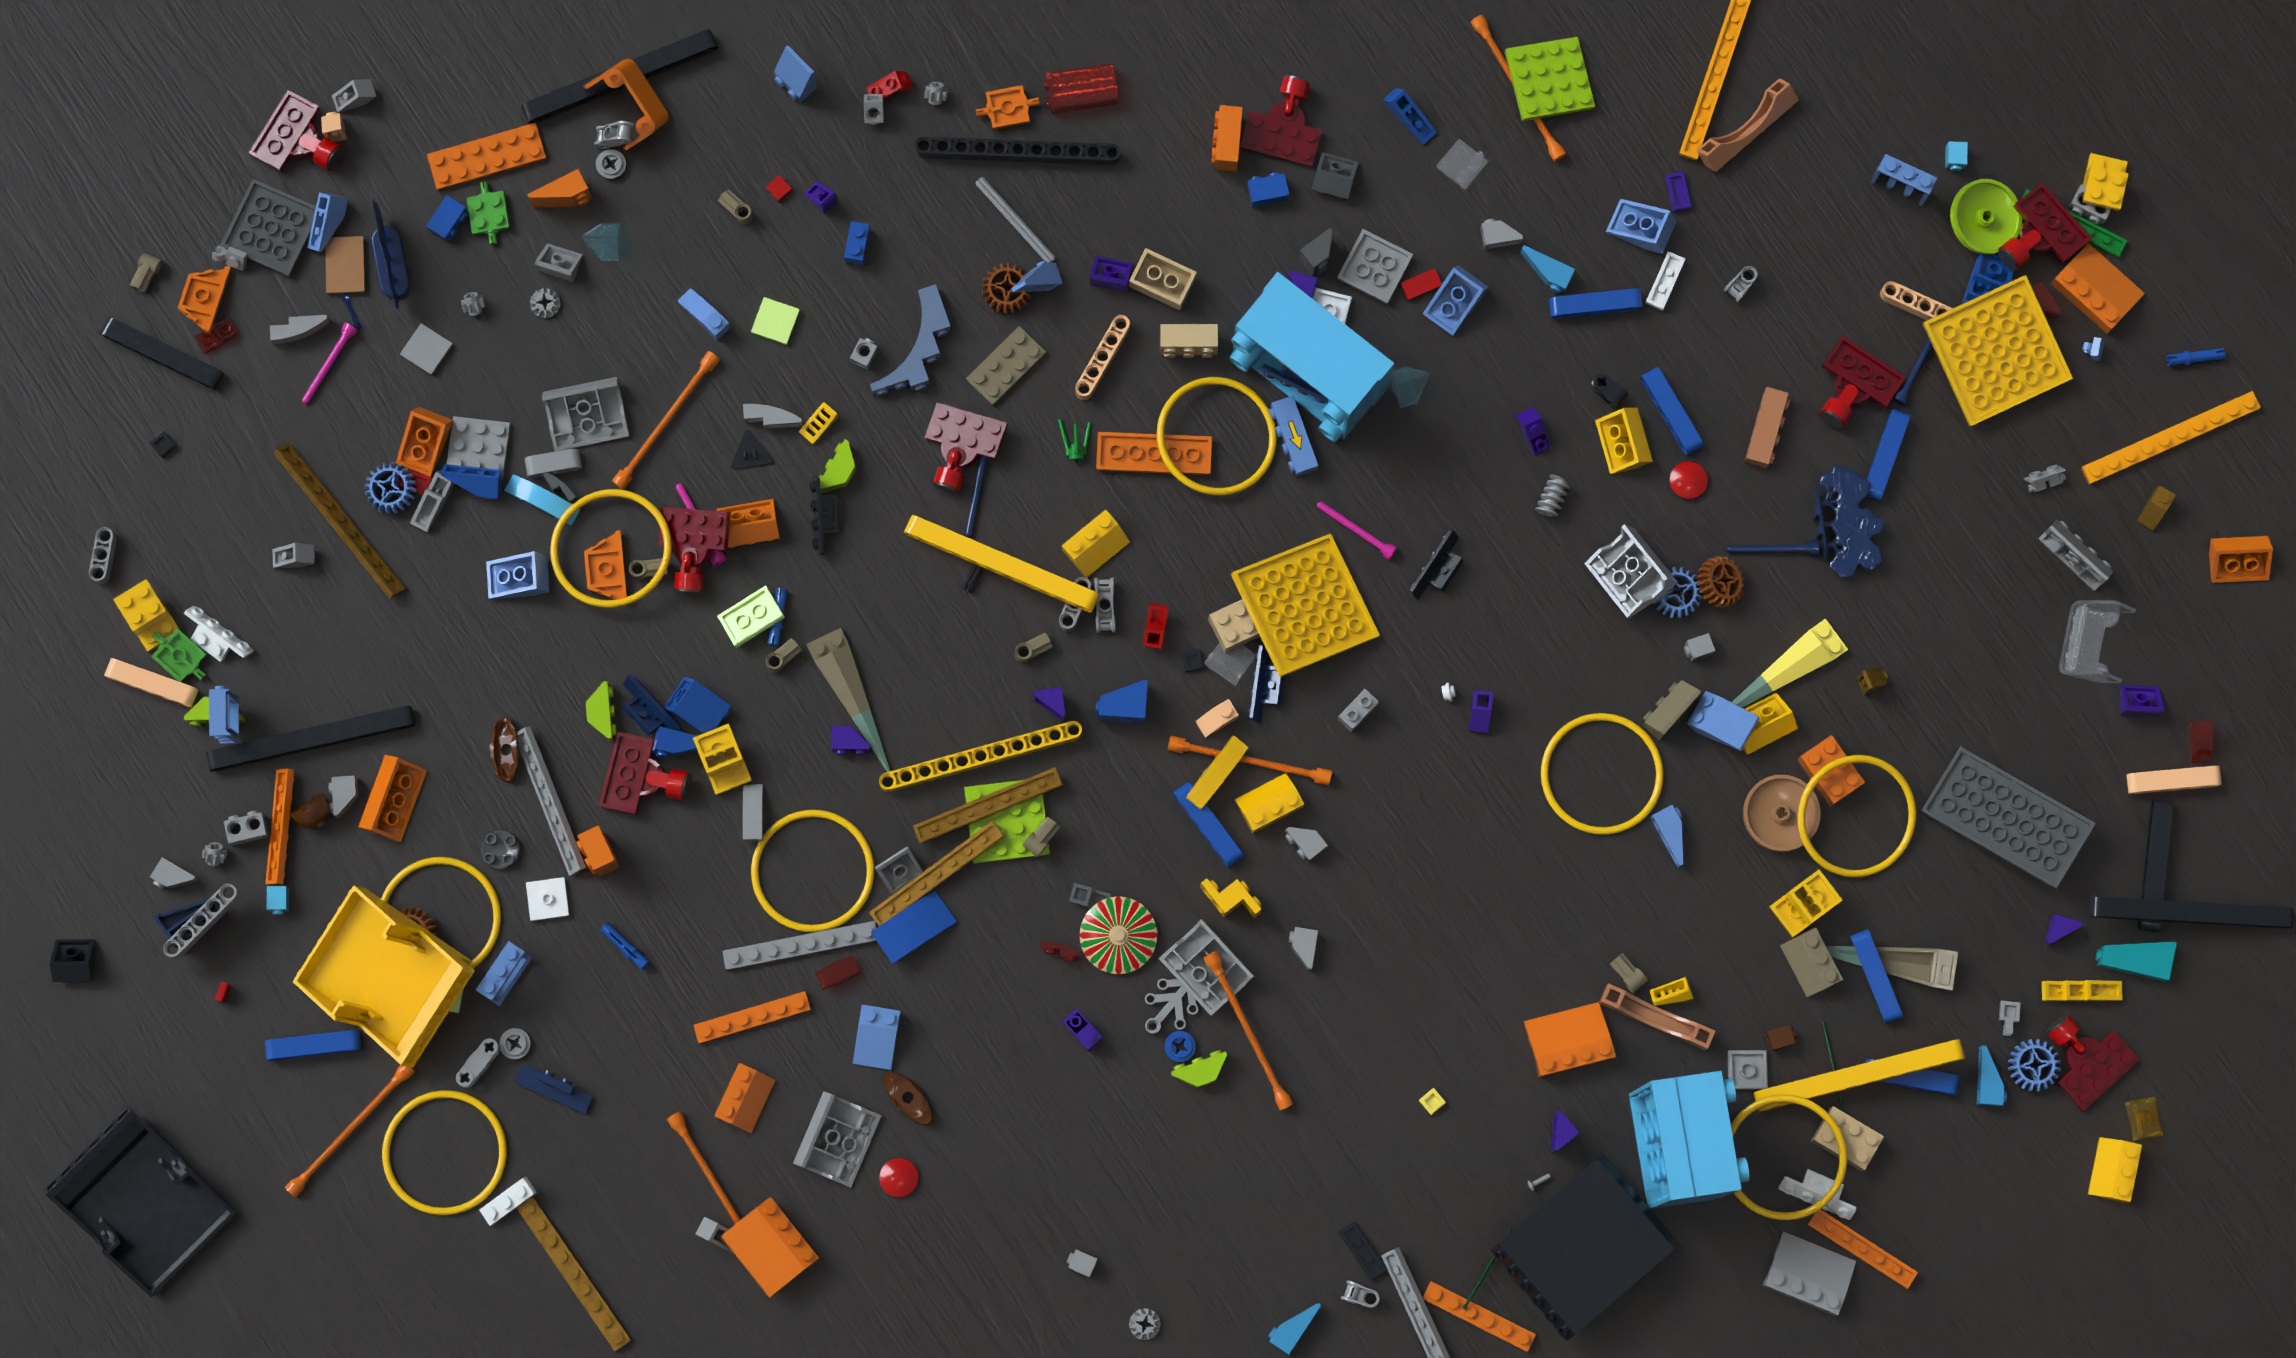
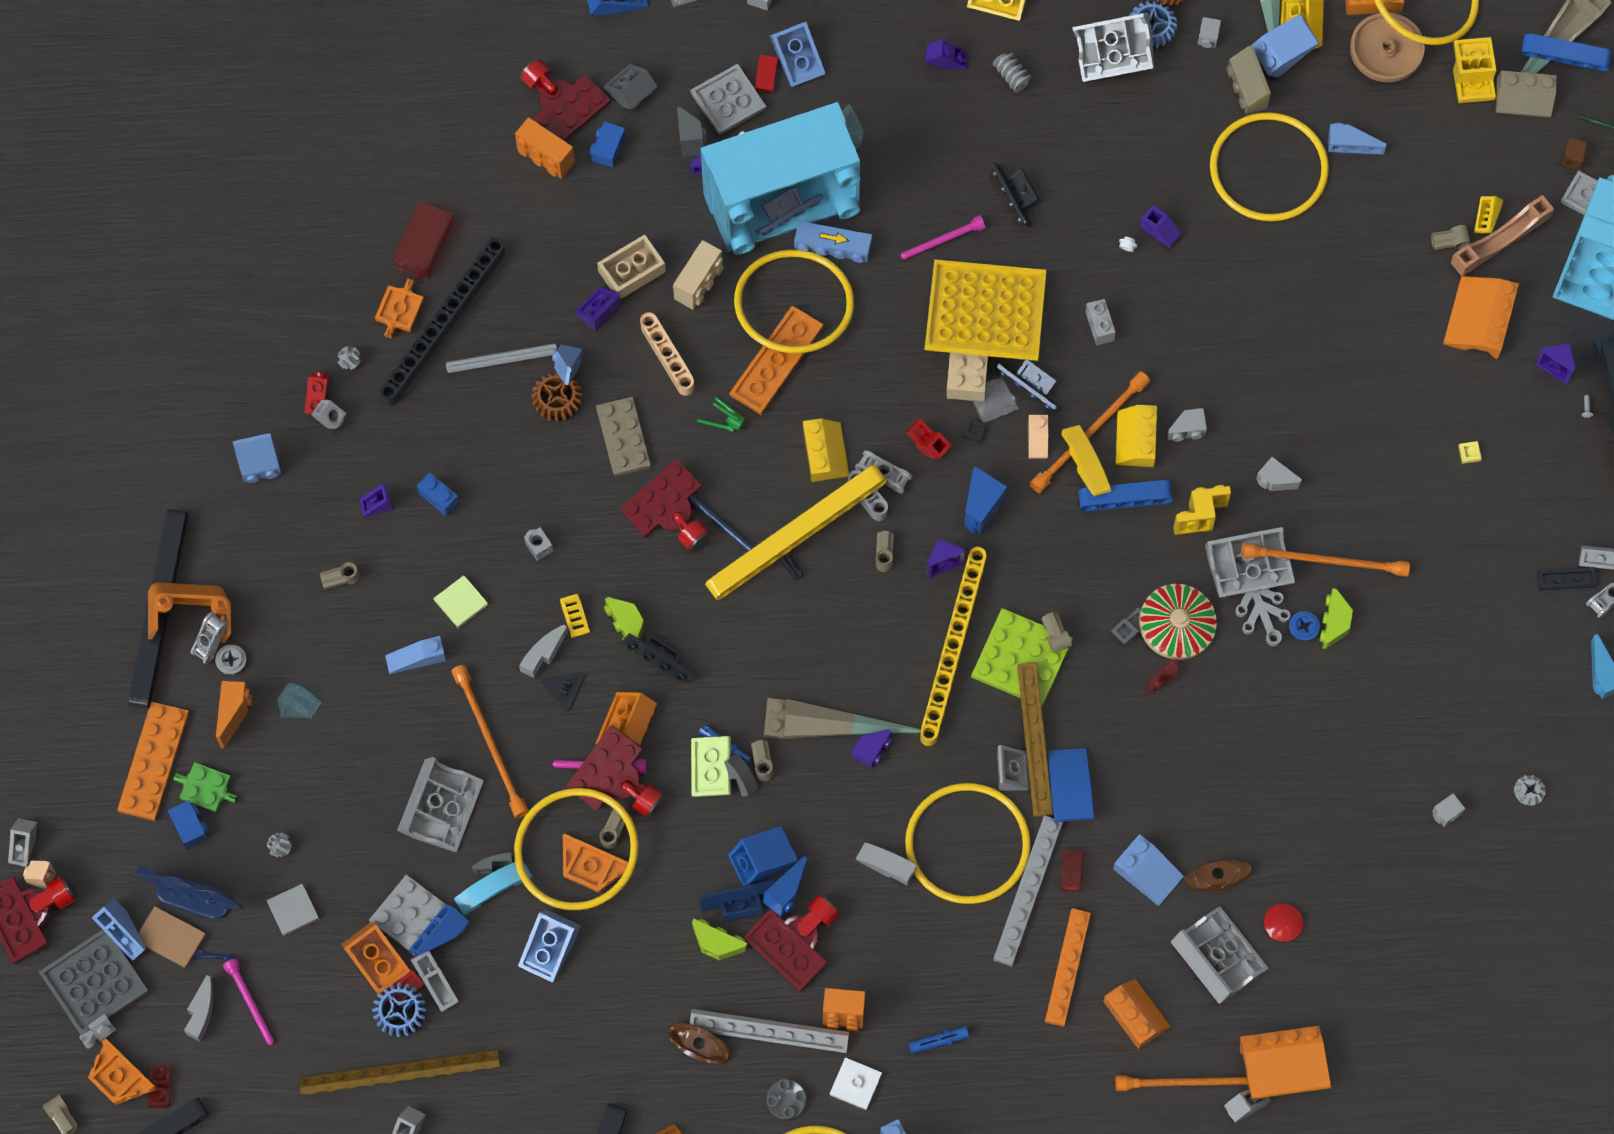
camera: 55 degrees left, 10 degrees down
(552, 307) = (321, 792): light grey gear -> none
(553, 463) = (466, 857): light grey beam -> none
(558, 262) = (290, 752): light grey slope -> none
(722, 759) = (824, 859): yellow bracket -> none
(759, 643) = (739, 770): none -> dark grey slope
(778, 188) = (345, 533): red tile -> none
(912, 370) = (549, 472): sand blue arch -> none
(987, 805) = (1000, 663): pearl gold tile -> none
(1082, 1029) = (1245, 695): dark purple slope -> none

